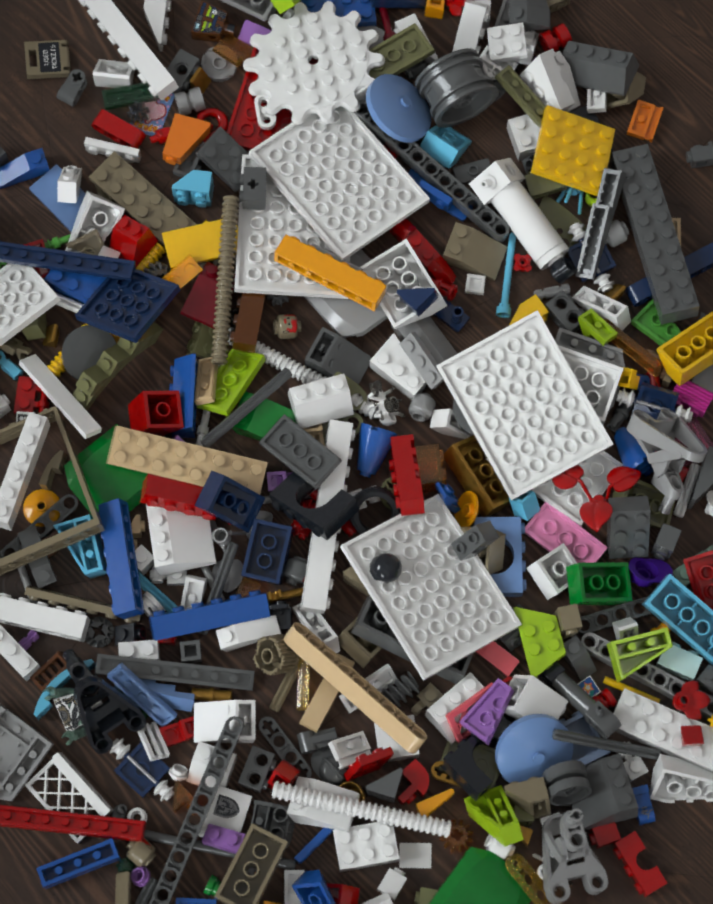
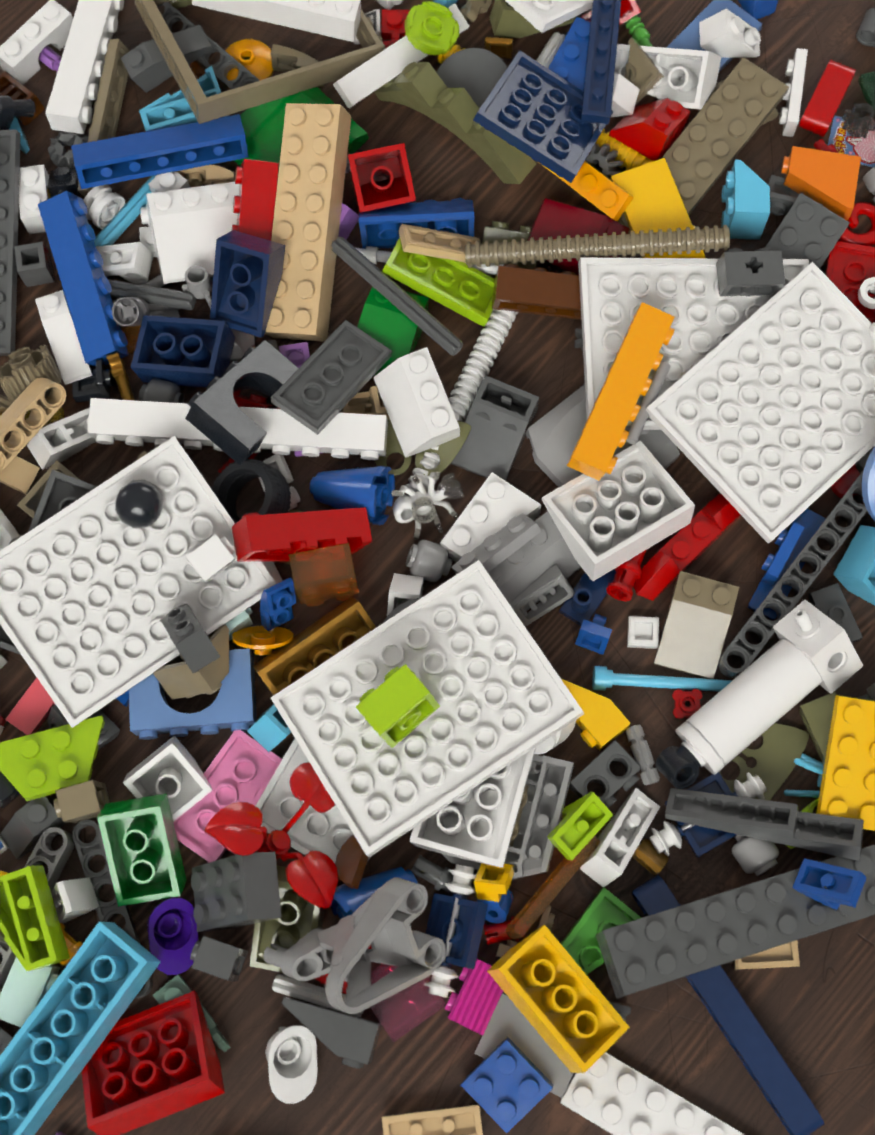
camera: 90 degrees right, 0 degrees up
(42, 374) = (431, 28): none -> lime tile
(241, 584) = (124, 311): none -> flat silver wheel
(286, 326) = (541, 353): dark tan head -> none
(418, 299) = (584, 523): dark blue slope -> none
(422, 527) = (211, 557): none -> white brick
(448, 337) = (547, 603): none -> light grey slope
(476, 311) = (594, 634): none -> blue tile
(528, 414) = (397, 705): none -> lime brick
(611, 459) = (351, 863): none -> reddish brown tile
(641, 189) = (829, 883): none -> blue slope

